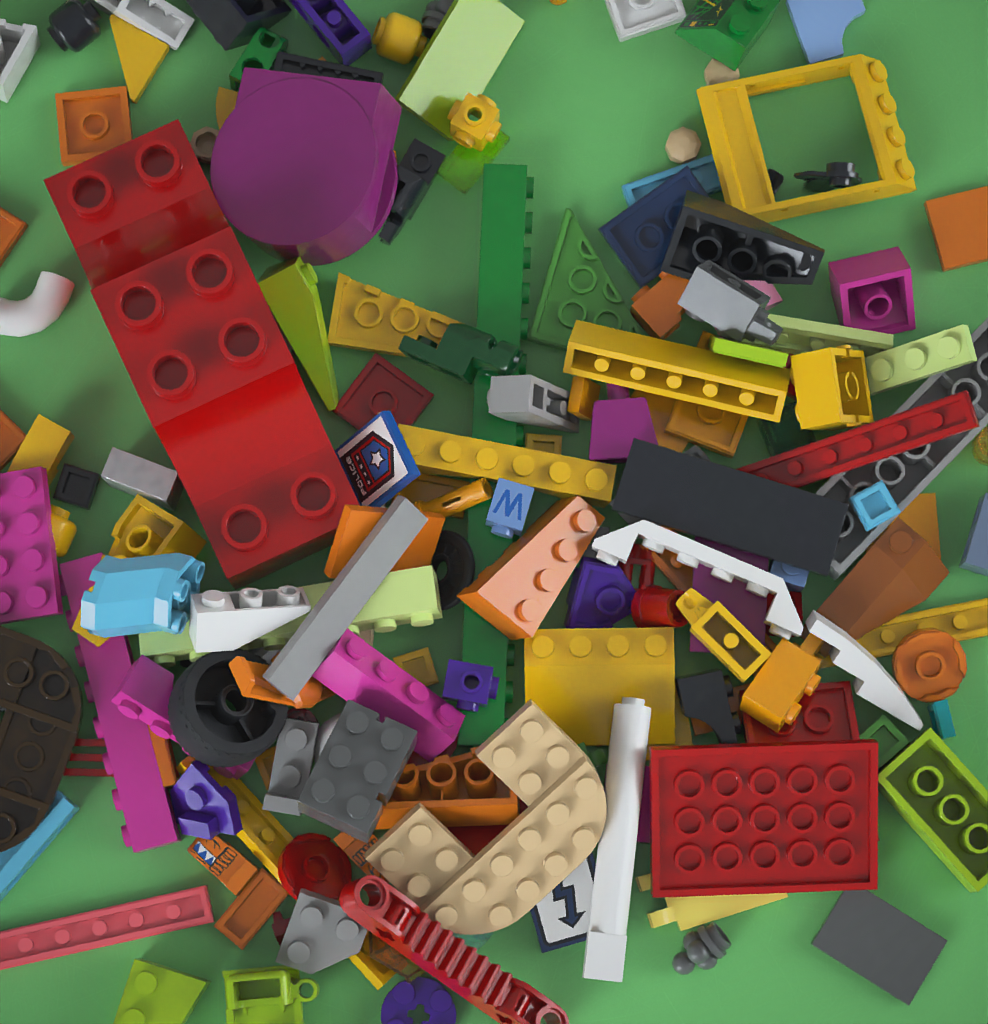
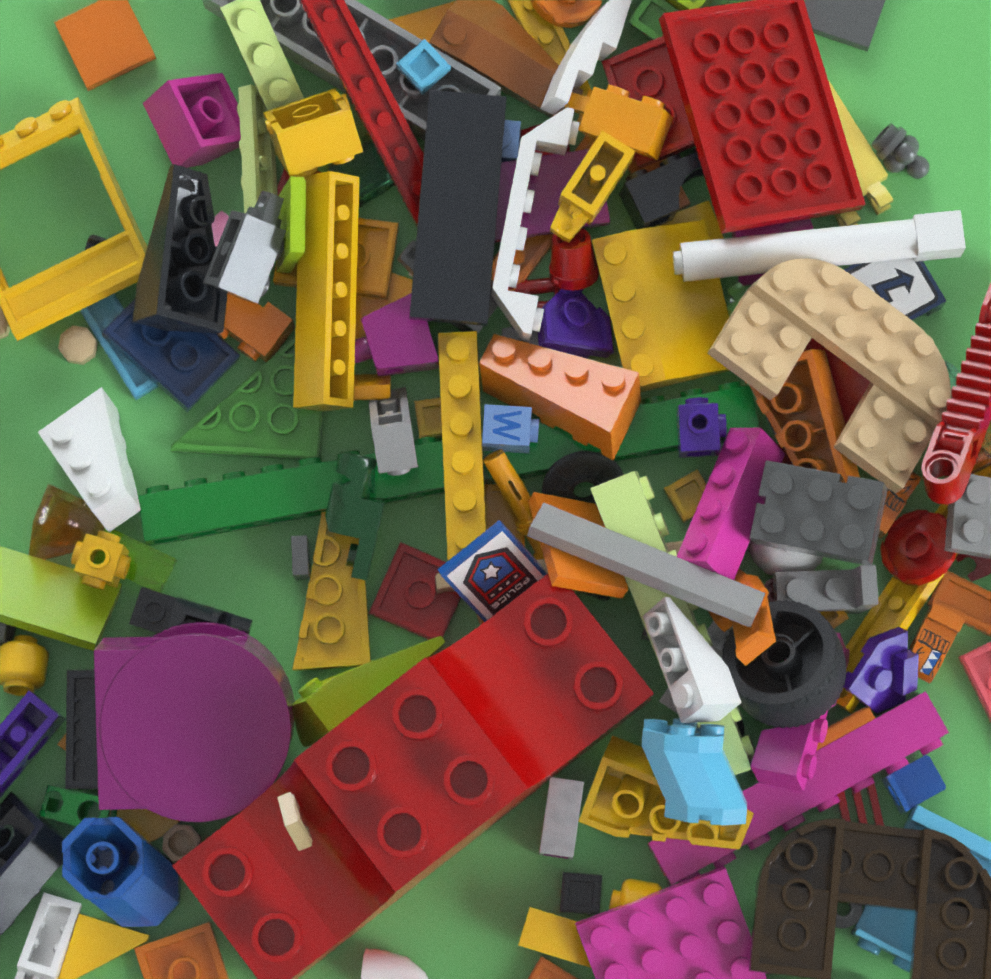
camera: 100 degrees left, 0 degrees up
(98, 811) = (914, 784): none -> blue bracket
(182, 221) = (293, 822): none -> tan tile
(191, 79) = (120, 872): none -> blue brick
(439, 301) = (300, 557): none -> dark grey tile
(521, 100) = (61, 524): none -> clear orange slope
(568, 132) = (94, 457): none -> white wedge
(836, 176) = (83, 176): black plate -> none

